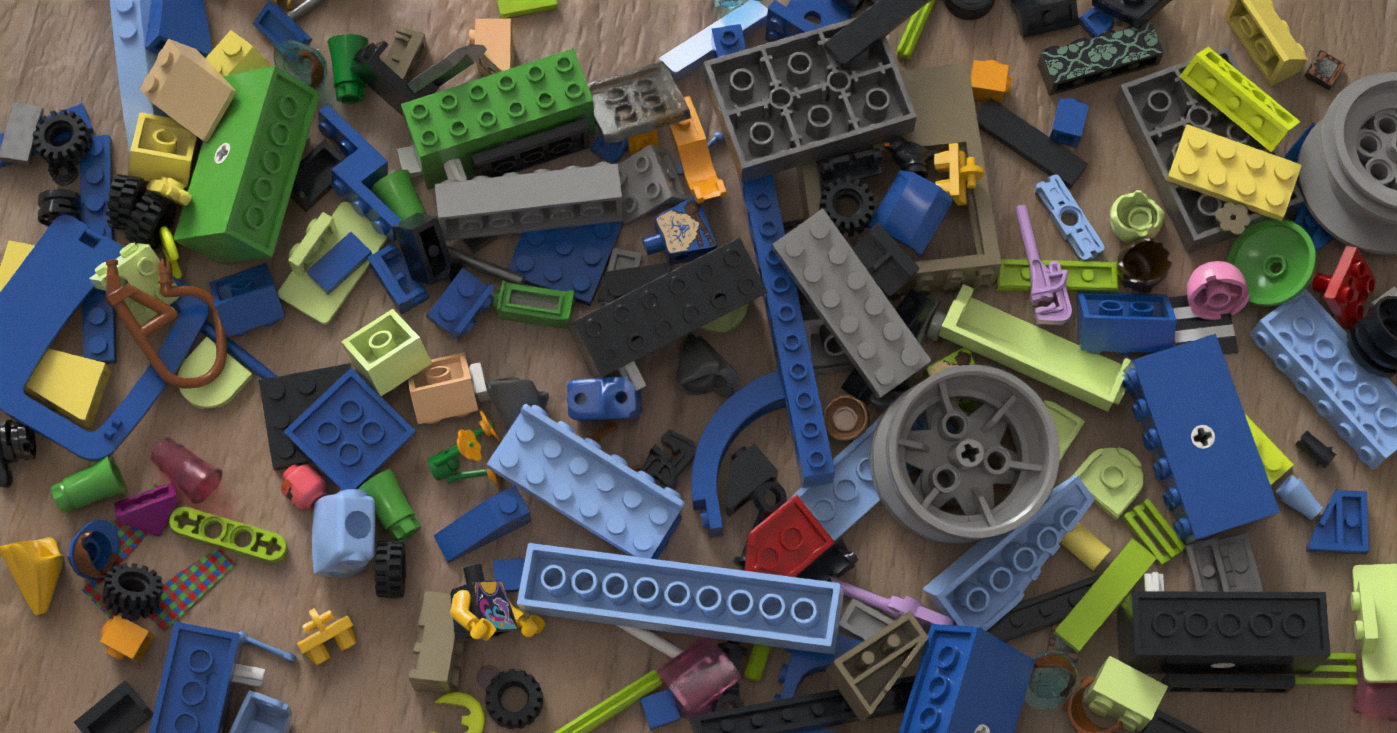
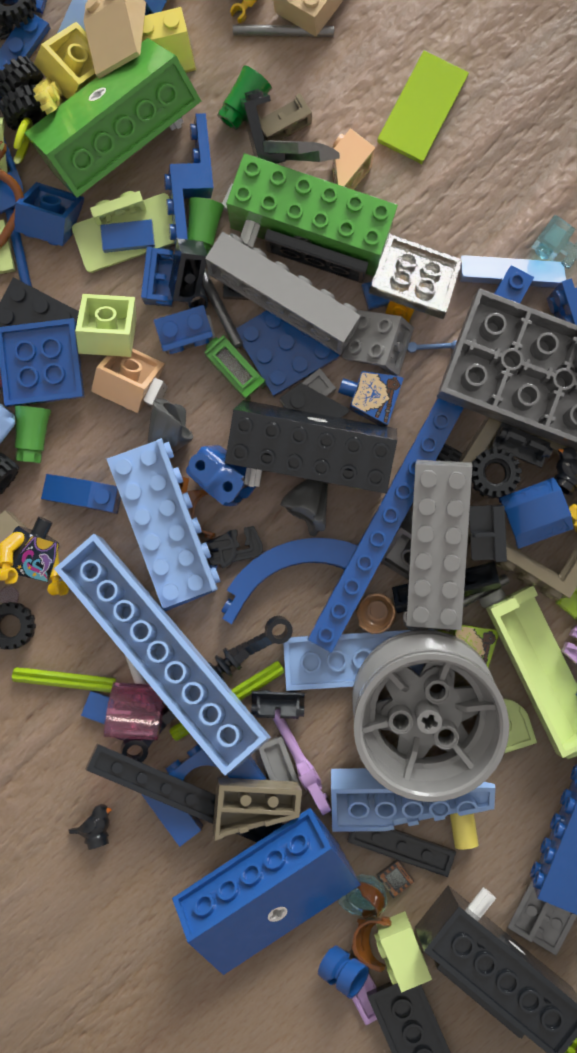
camera: 45 degrees right, 15 degrees up
(279, 26) = (220, 35): blue tile -> none
(302, 62) = (212, 71): clear light blue piece -> none
(315, 175) = (154, 158): black panel -> none
(446, 461) = (104, 434): plant -> none
(509, 573) = (72, 538): blue tile -> none
(695, 158) = (426, 350): light orange piece -> none
(747, 472) = (278, 599): black slope -> none
(786, 541) = (263, 669): red tile -> none
(1105, 595) = (448, 872): lime tile -> none
(1112, 479) = (520, 794): yellowish green tile -> none
(1164, 527) = (518, 877): lime tile -> none

